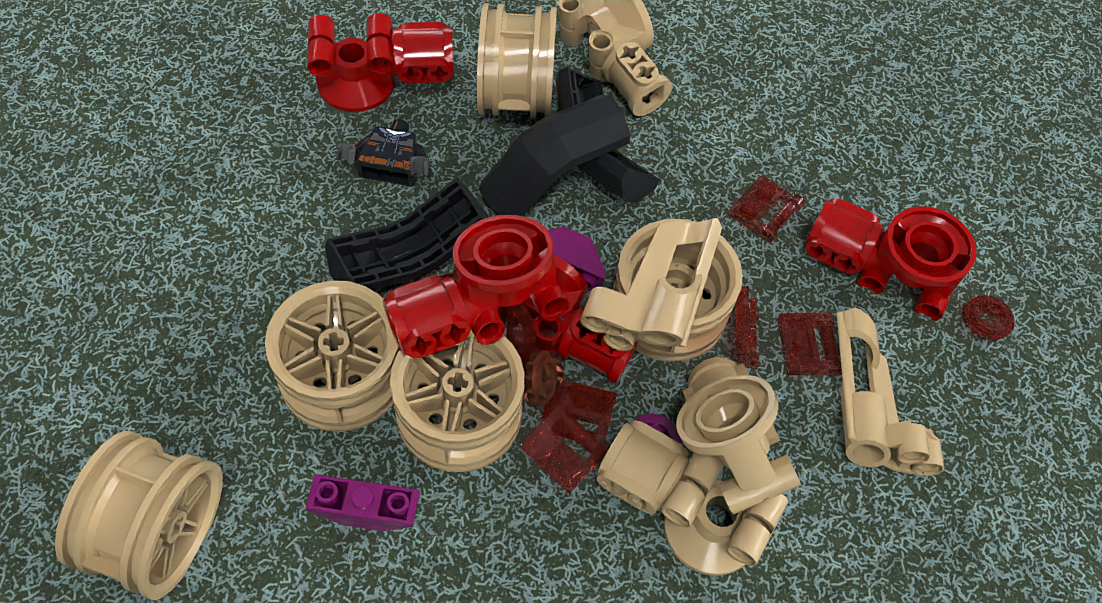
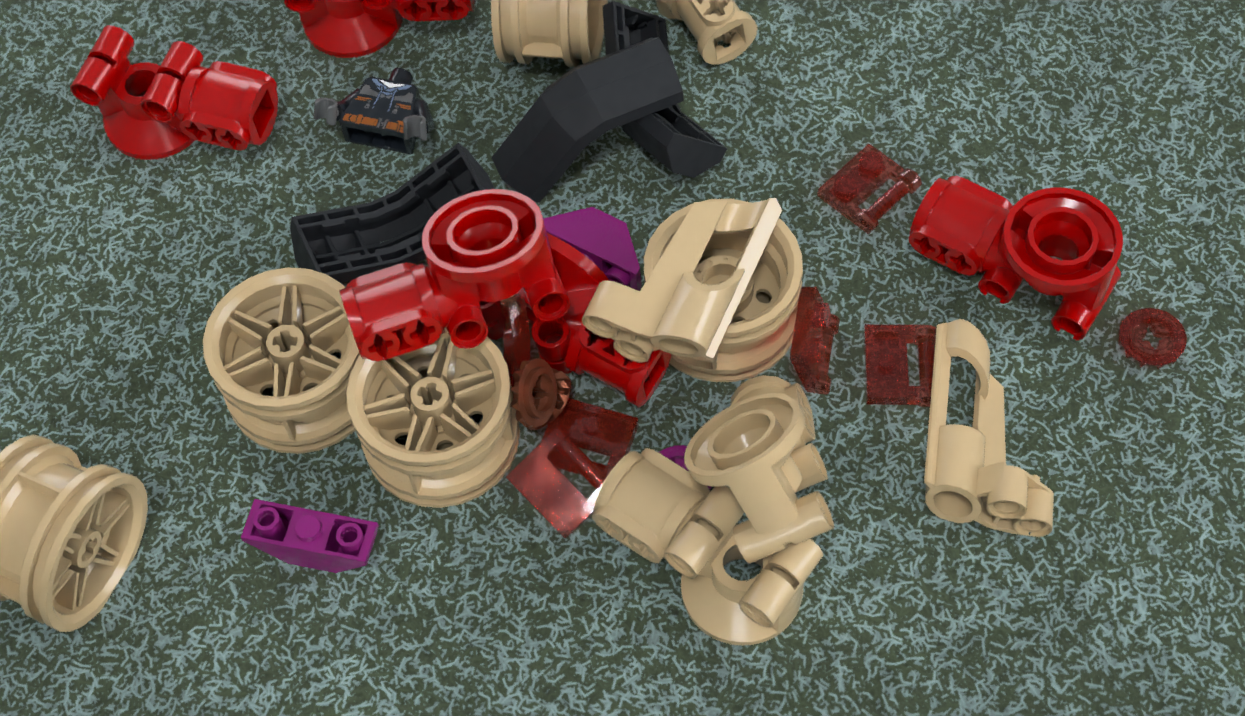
camera: 15 degrees right, 0 degrees up
(213, 152) = (167, 107): none -> red piece

